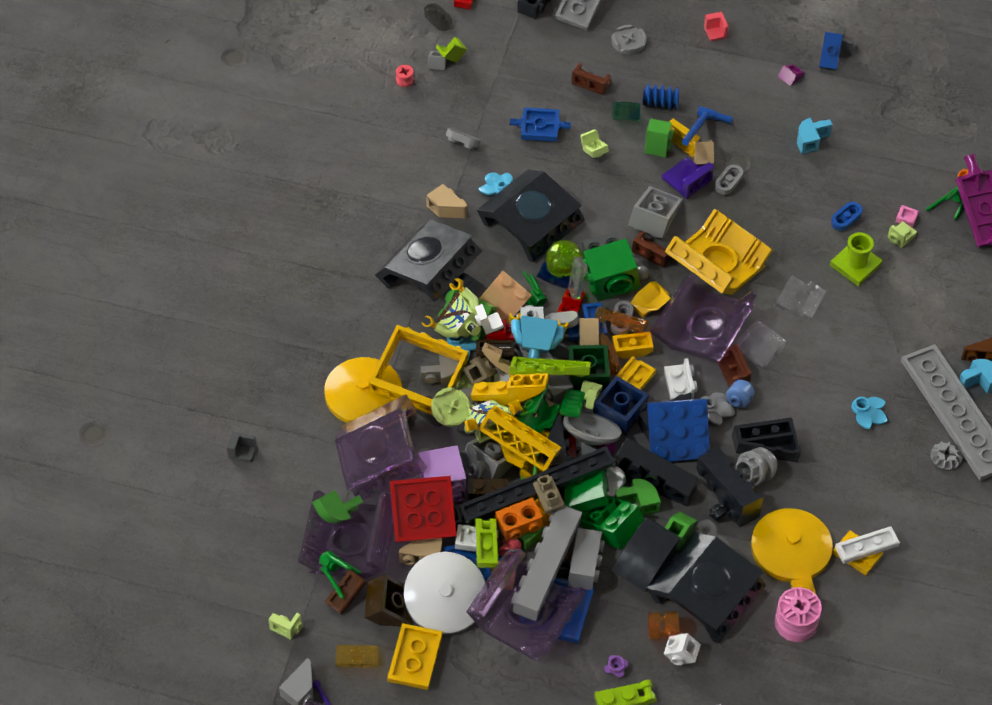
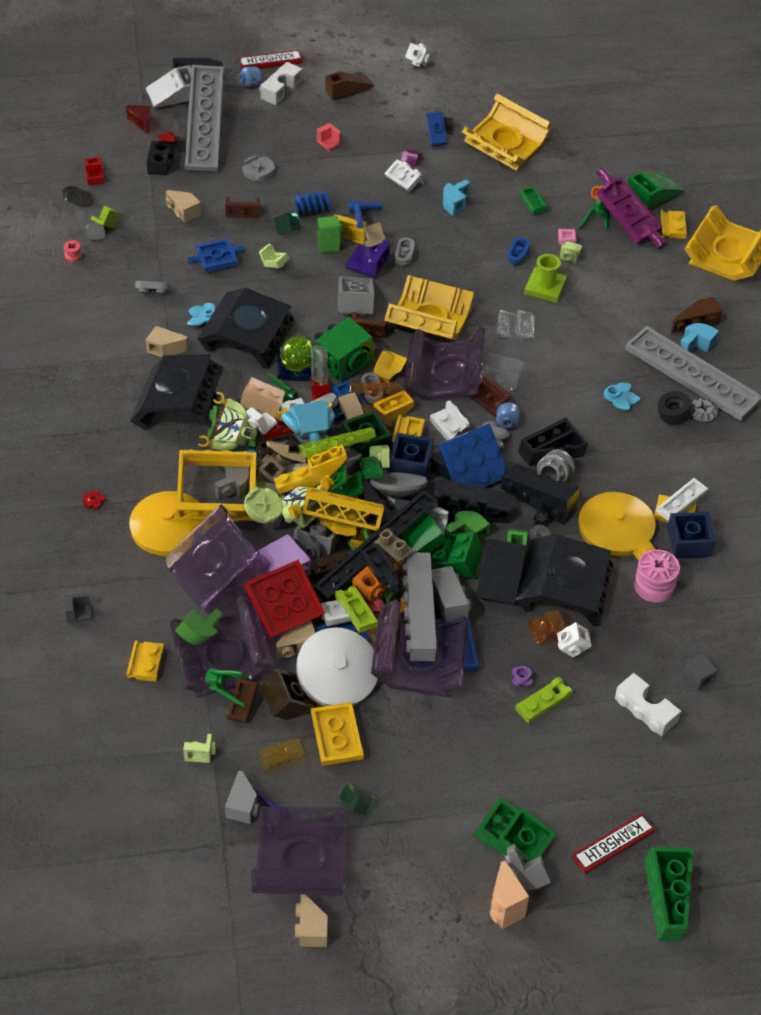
camera: 25 degrees left, 5 degrees down
(279, 520) = (145, 661): none -> yellow plate
(306, 343) = (94, 499): none -> red plant
(525, 510) = (381, 567): none -> black hinge
(534, 59) = (183, 204): none -> tan slope
(770, 94) = (403, 175): none -> white bracket
(856, 584) = (691, 534): none -> dark blue brick
(892, 163) = (533, 200): none -> green plate
(905, 79) = (509, 133): none -> yellow panel
(913, 433) = (678, 416): none -> black tyre

